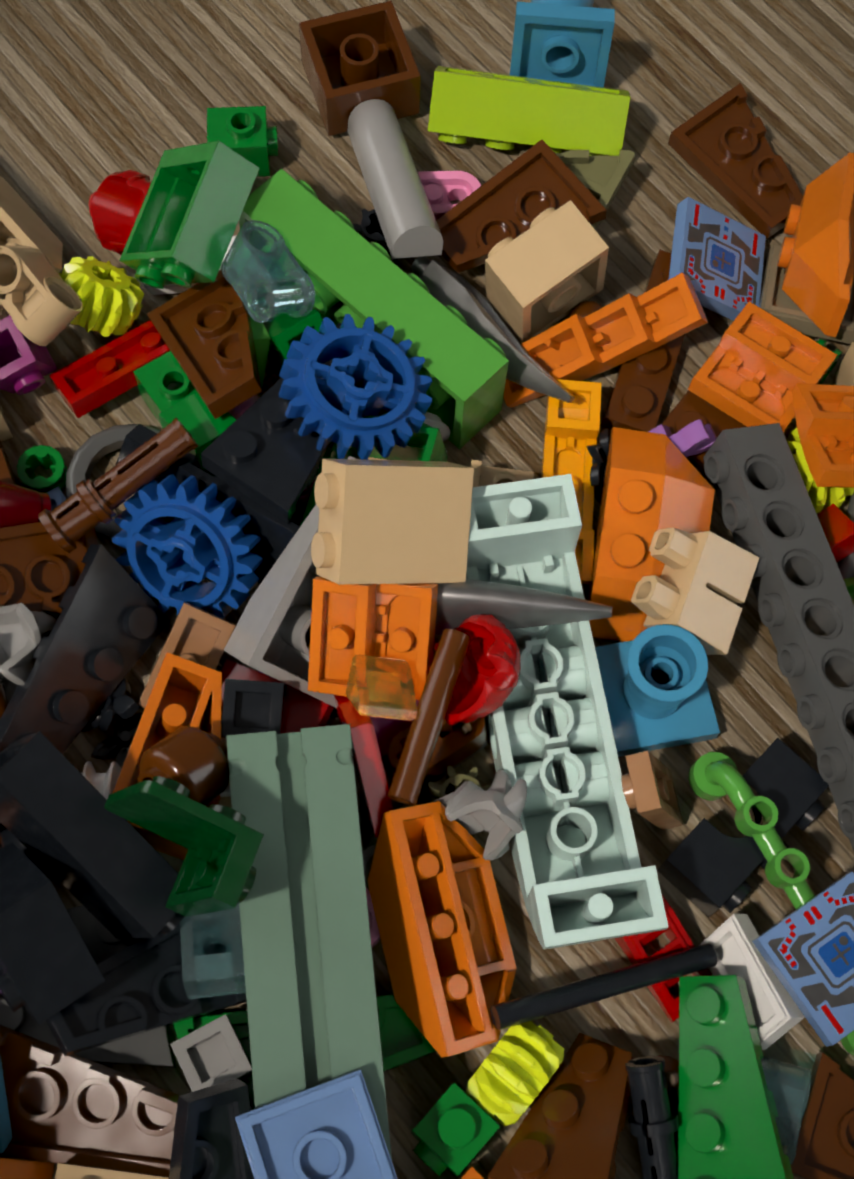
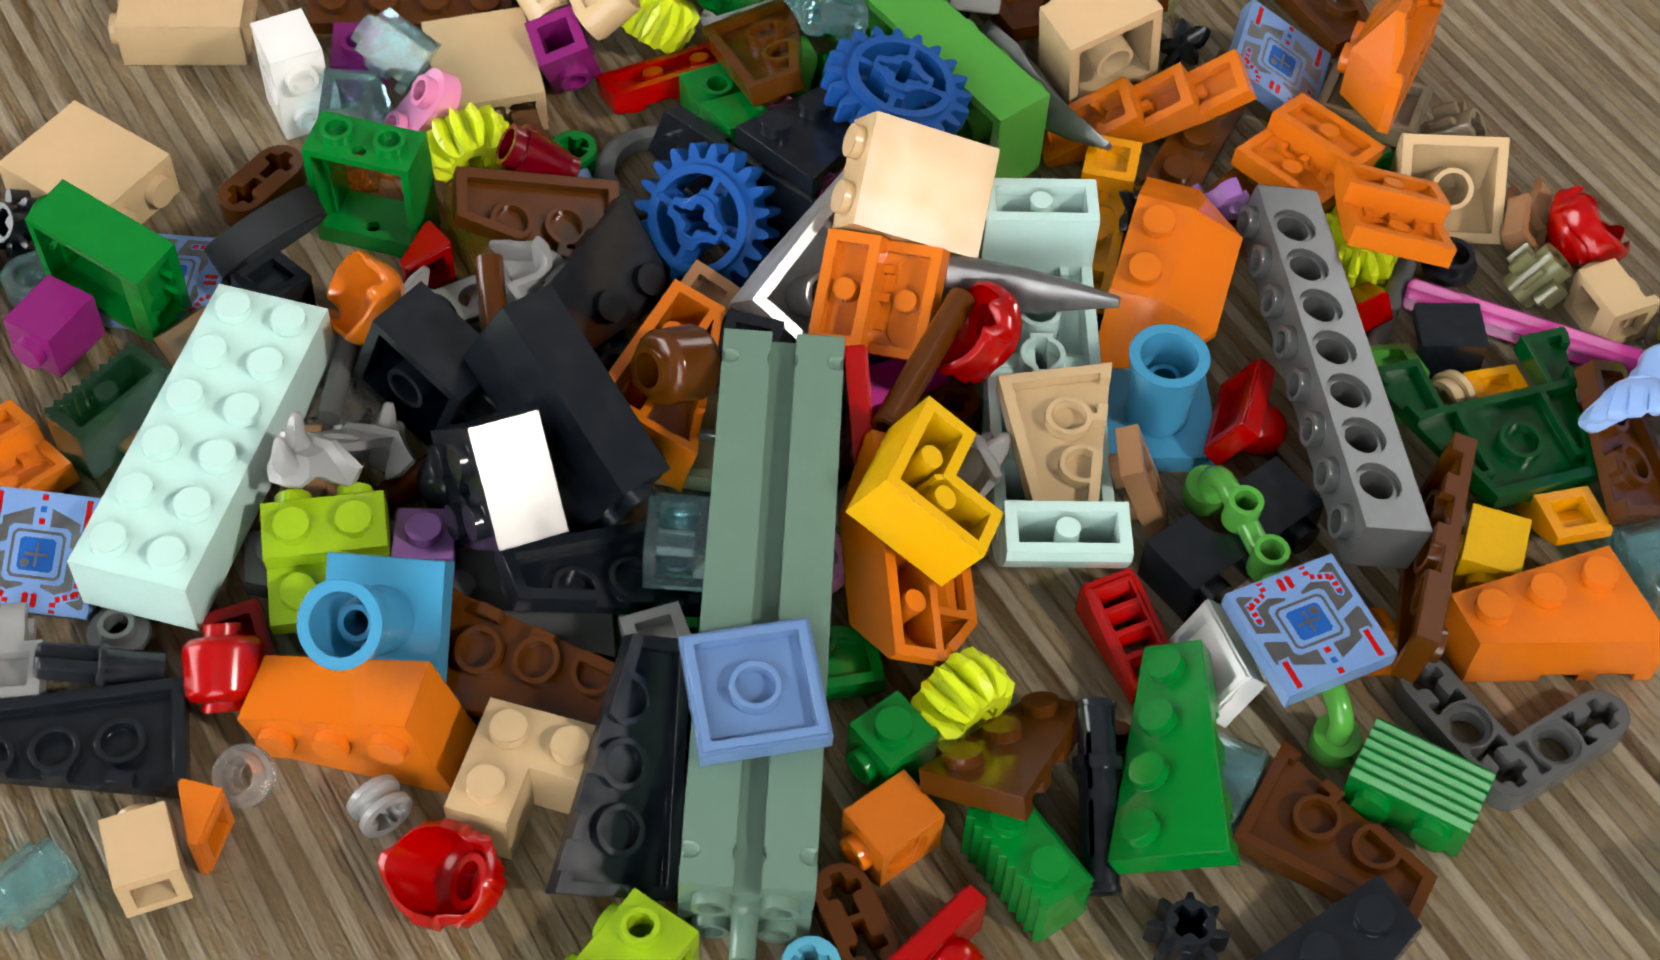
camera: 10 degrees right, 15 degrees down
(97, 500) = (630, 155): reddish brown pin -> none
(219, 845) = (678, 387): dark green bracket -> none
(381, 688) = (880, 331): clear yellow slope -> none
(442, 889) = (918, 499): none -> yellow brick
(571, 777) = (1057, 429): none -> tan wing
(602, 986) = (1060, 636): black bar -> none
(624, 247) = (1183, 44): none -> black plant
(697, 586) = (1218, 302): tan hips -> none
(738, 688) = (1244, 416): none -> red tile

